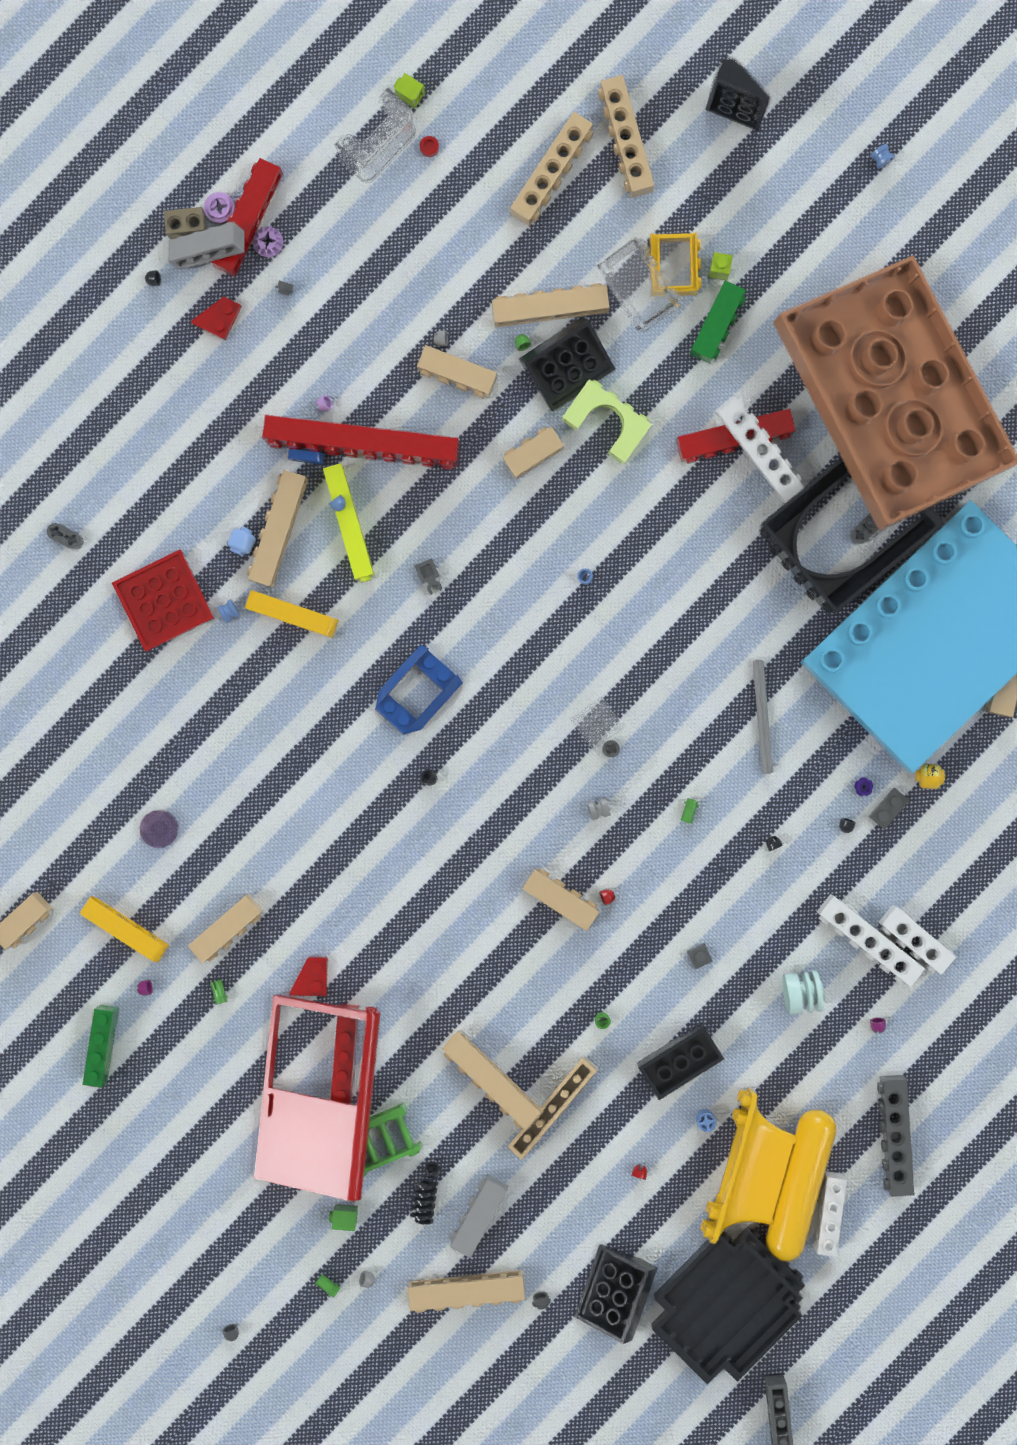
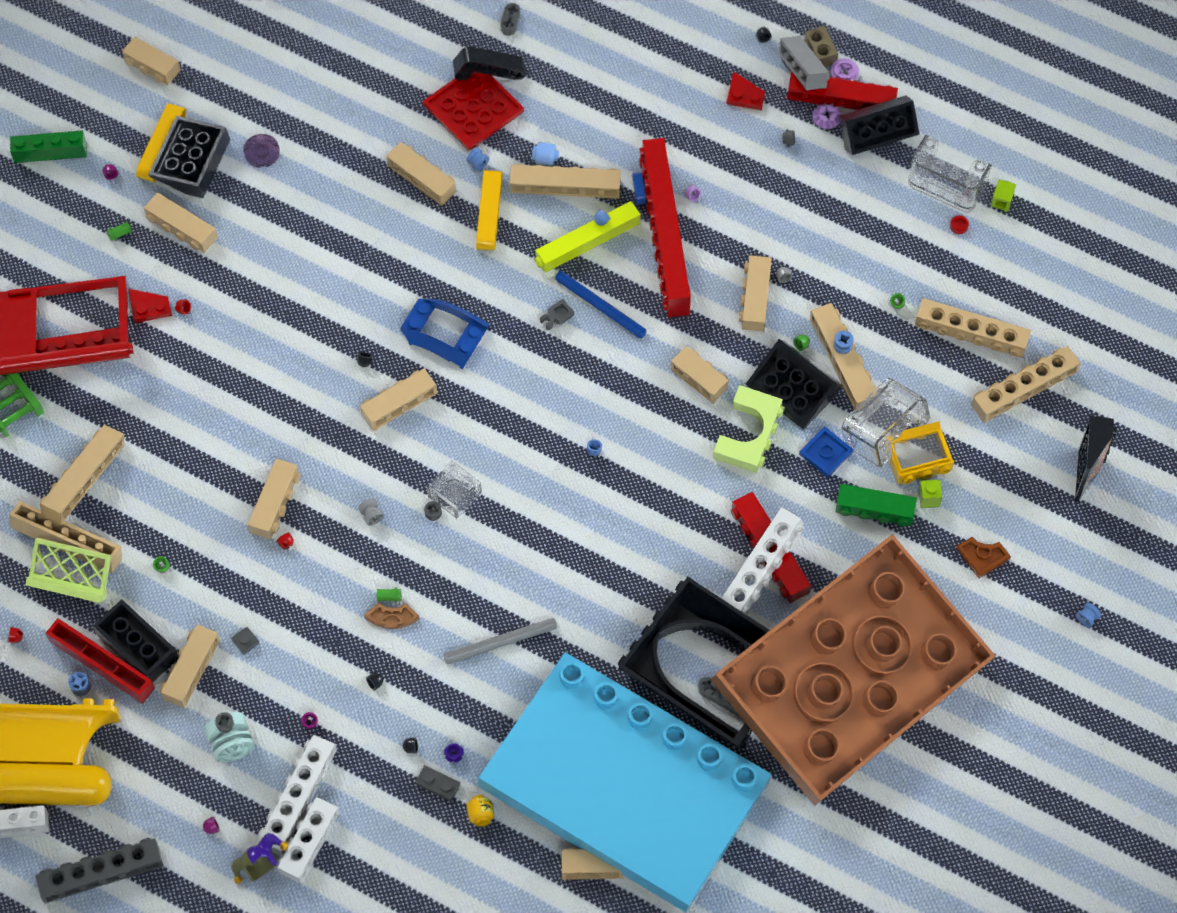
camera: 75 degrees right, 25 degrees down
(120, 573) = (488, 62): none -> black beam
(150, 904) = (190, 156): none -> black slope
(231, 672) = (421, 173): none -> tan brick
(300, 190) = (879, 125): none -> black brick
(323, 948) = (183, 303): none -> red hinge
(427, 529) = (600, 304): none -> blue axle
(484, 755) = (398, 399): none -> tan brick
(502, 229) = (900, 298): none -> bright green hinge
(543, 305) = (841, 346): none -> medium blue wheel
(602, 1116) = (69, 587): none -> yellowish green fence
(646, 353) = (826, 451): none -> blue tile
(690, 1099) = (100, 660): none -> red brick
(711, 812) = (392, 617): none -> medium nougat tile
(715, 1013) = (190, 666): none -> tan brick
(794, 238) = (982, 557): none -> dark orange tile
(801, 911) = (305, 717): none -> magenta hinge
(806, 1000) = (218, 722): none -> dark grey bush
(927, 990) = (258, 859): none -> piece

